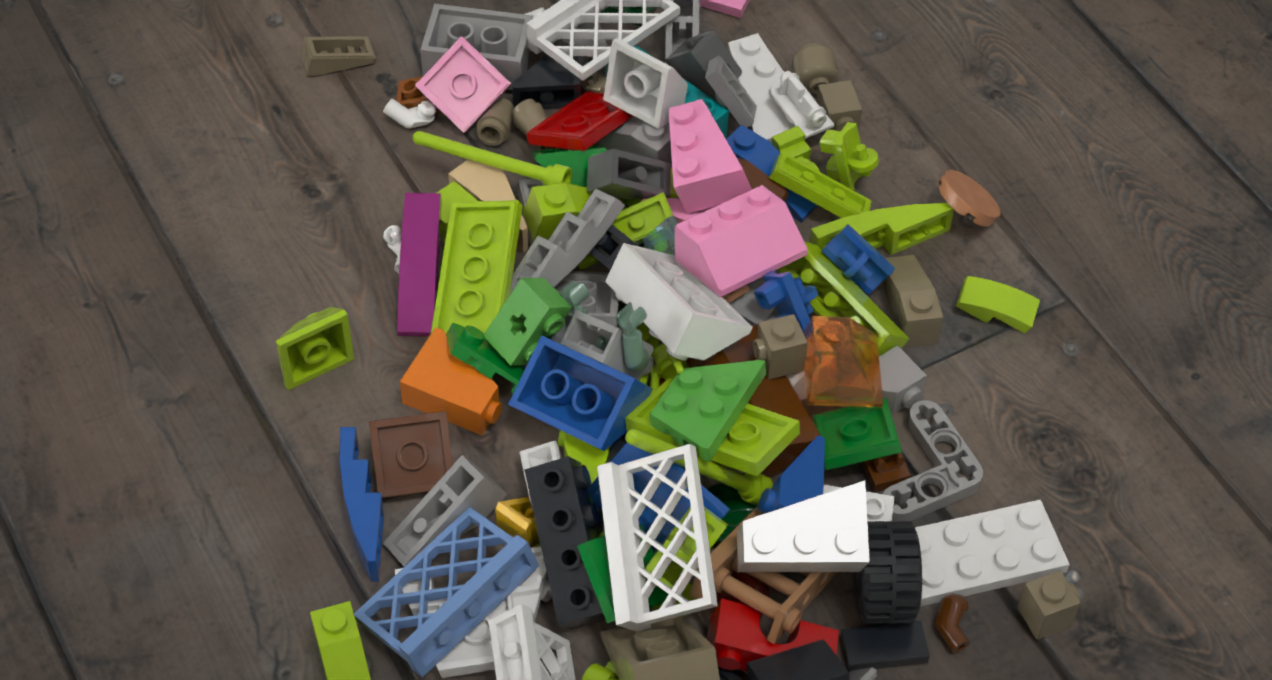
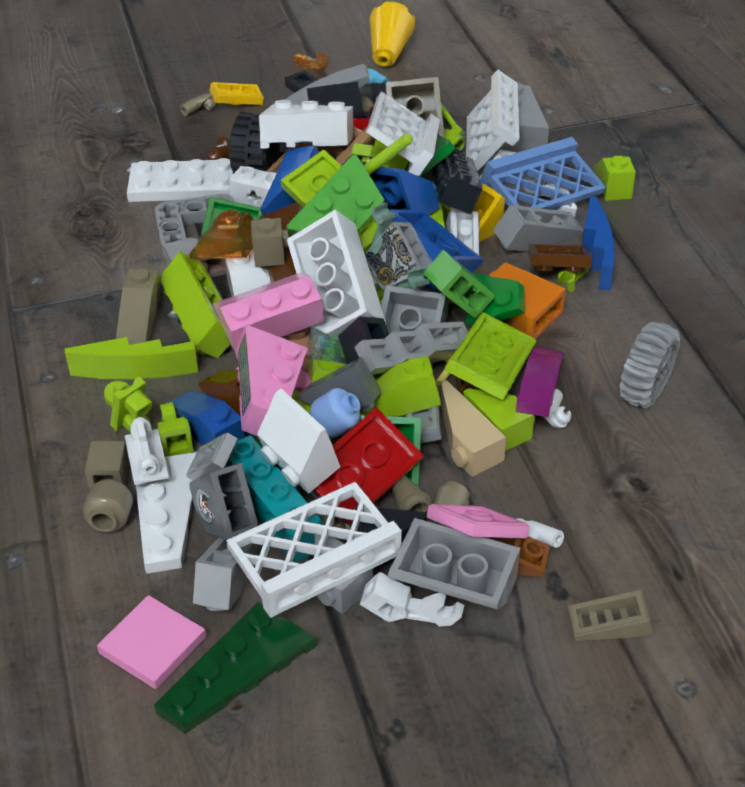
camera: 165 degrees left, 10 degrees down
(296, 280) = (649, 364): none -> light grey gear
(315, 346) = (626, 317): lime slope -> none
(550, 175) = (406, 405): lime piece -> none
(623, 134) = (336, 411): none -> light blue head
(787, 296) = (244, 279): blue hips -> none
(817, 187) = (173, 384): lime tile -> none
(858, 259) = (167, 323): blue hips -> none
(968, 197) = (44, 364): nougat tile -> none
(993, 299) = (73, 301): lime slope -> none
(1049, 604) = (158, 141): dark tan brick -> none

